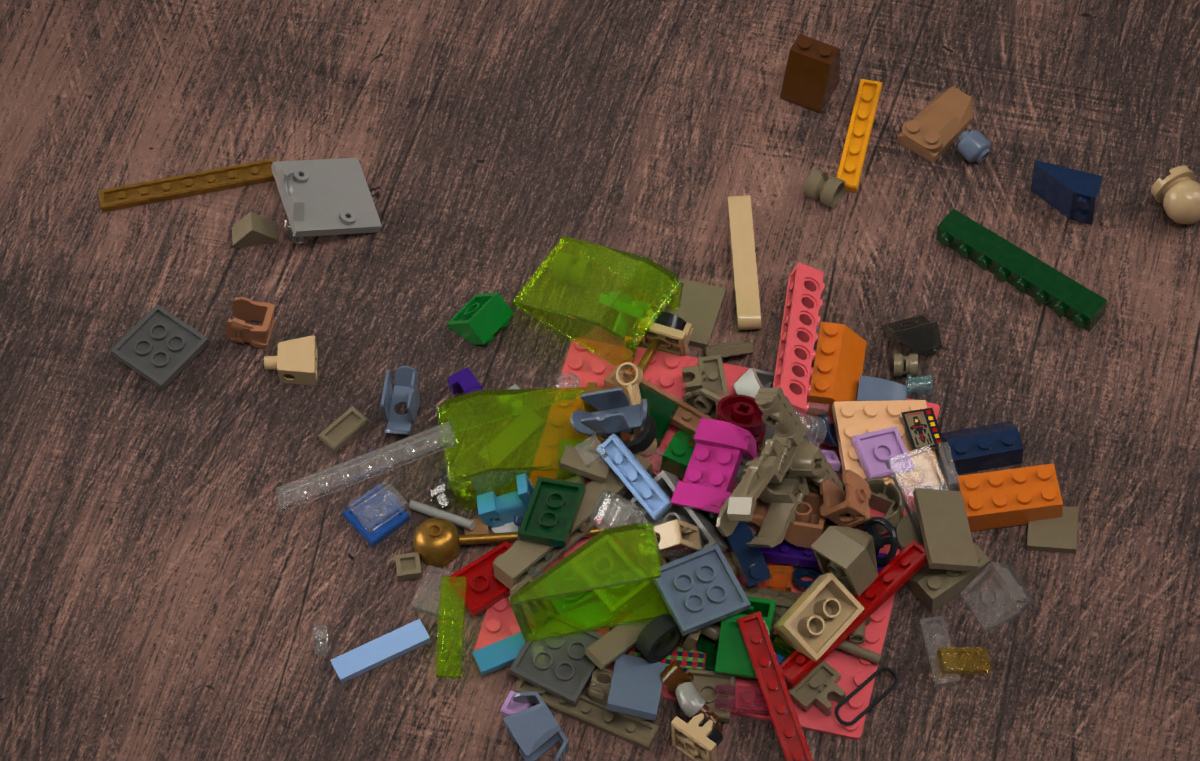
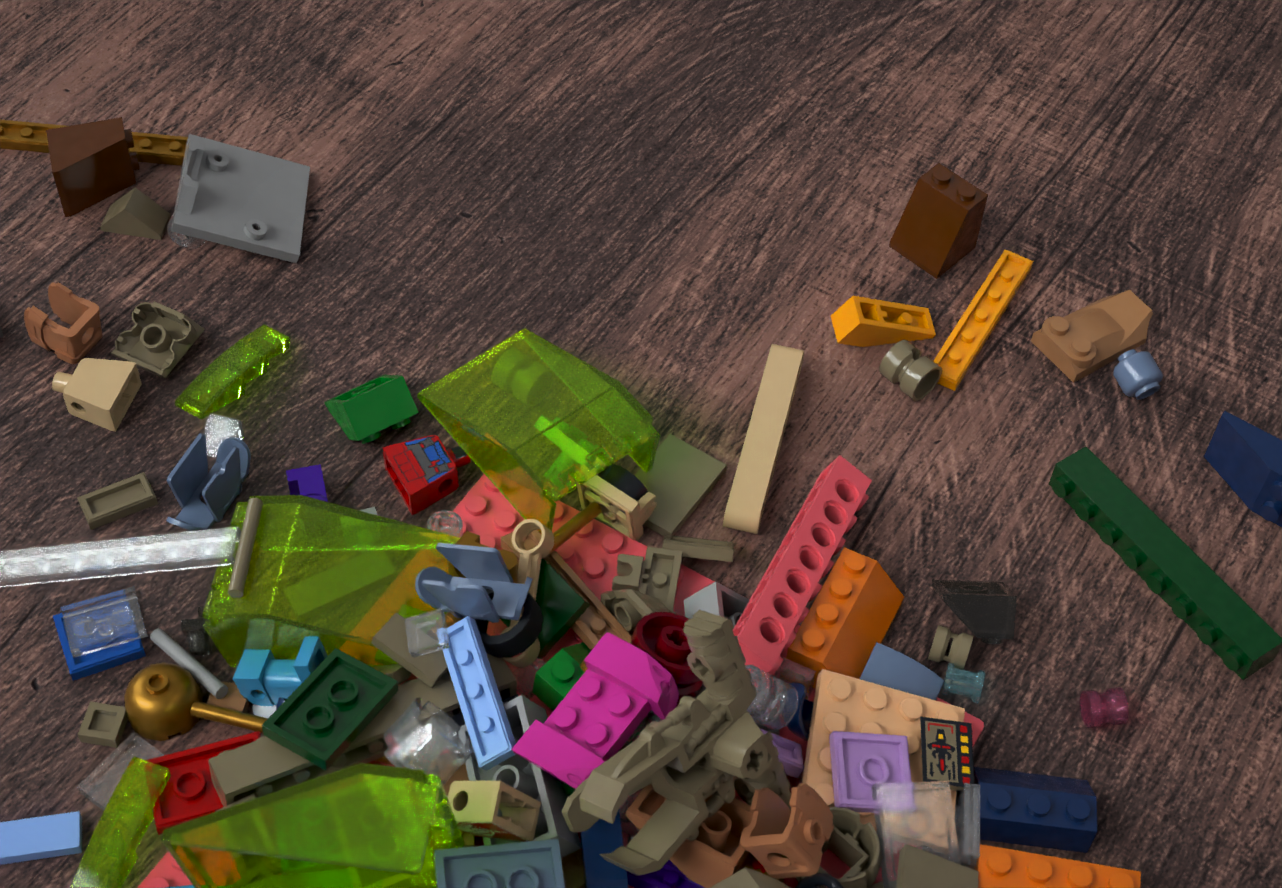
camera: 10 degrees right, 5 degrees down
(207, 201) = (91, 162): none -> reddish brown slope
(315, 314) = (157, 338): none -> dark tan slope
(378, 321) = (228, 374): none -> clear neon green slope
(389, 362) = (218, 429): none -> clear slope
(458, 432) = (245, 548): none -> dark tan bar
(533, 351) = (423, 470): none -> red torso
(793, 159) = (880, 322): none -> light orange slope
(1008, 374) = (1103, 707): none -> clear pink wheel

